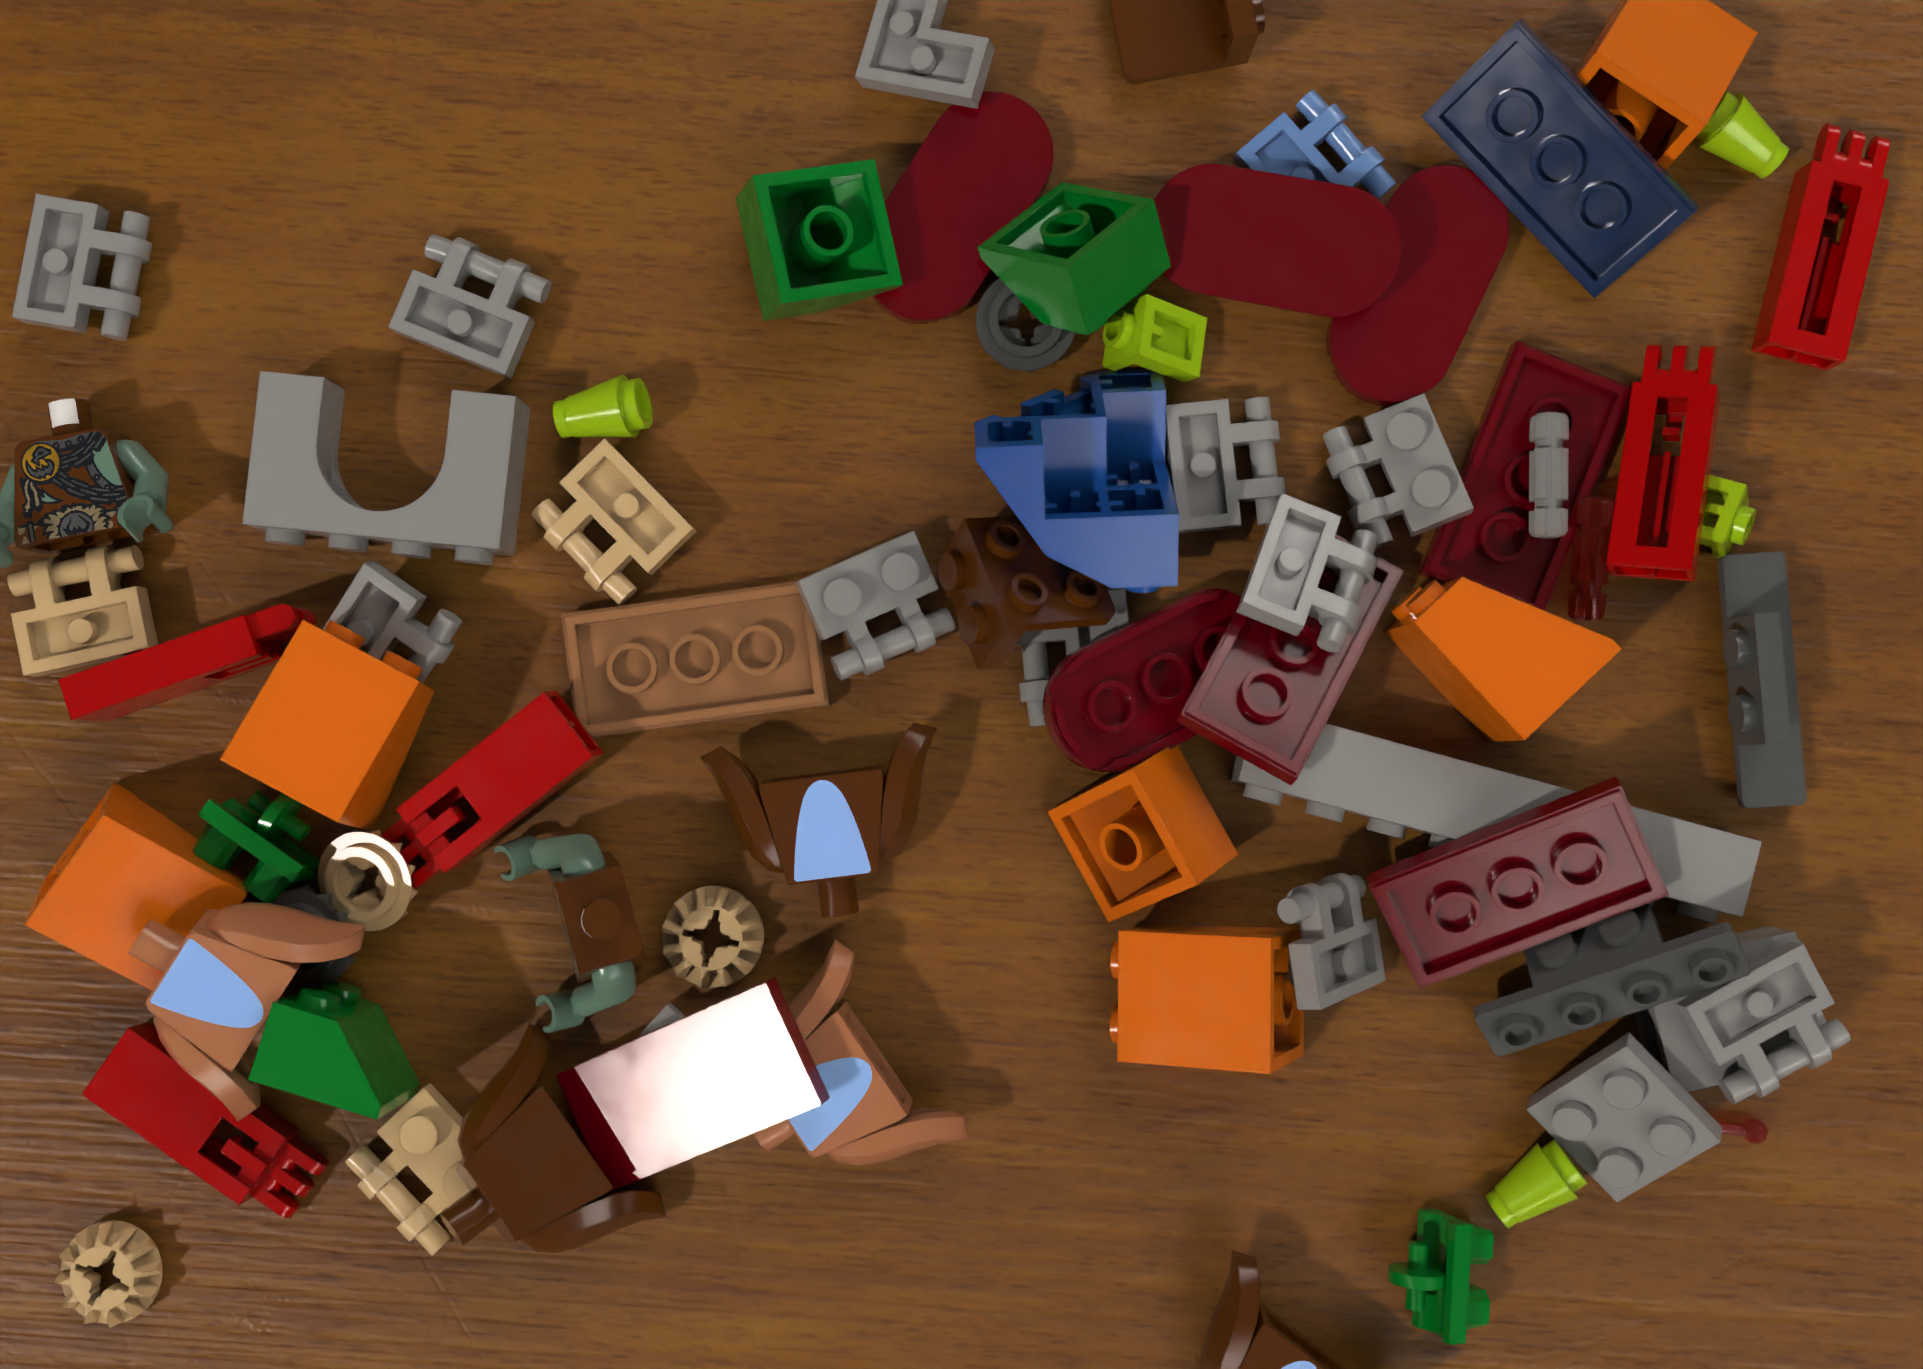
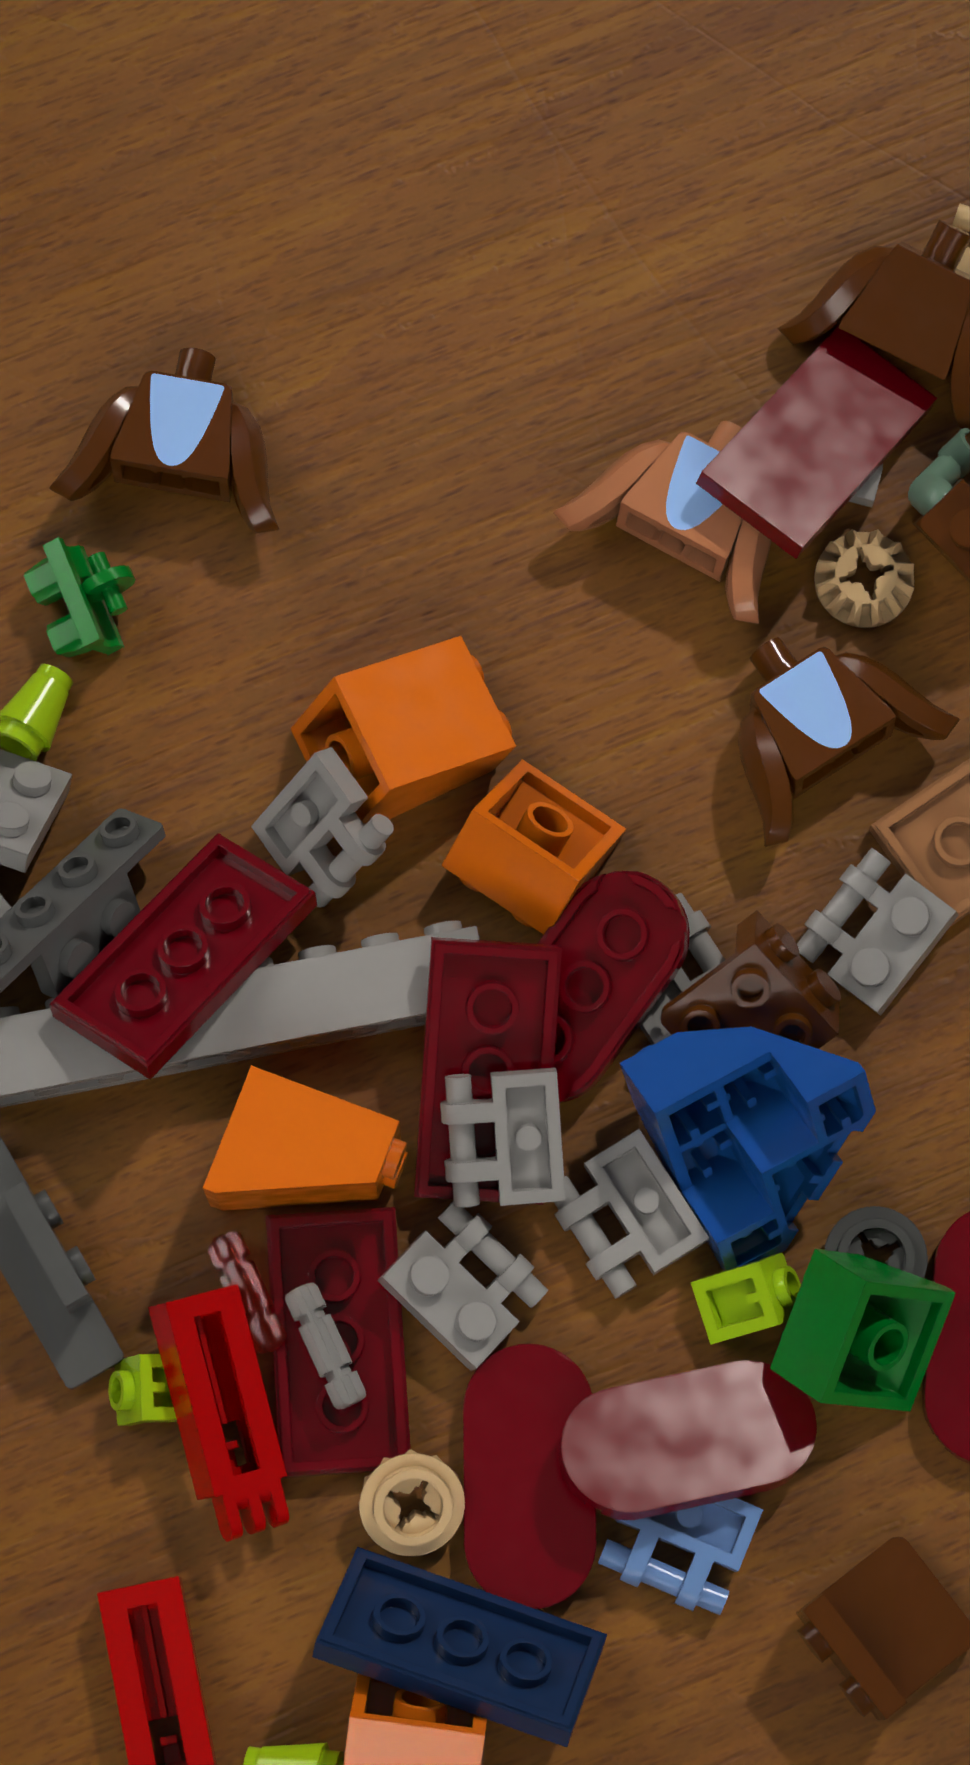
camera: 150 degrees right, 10 degrees down
(1532, 285) = (420, 1530): none -> tan gear

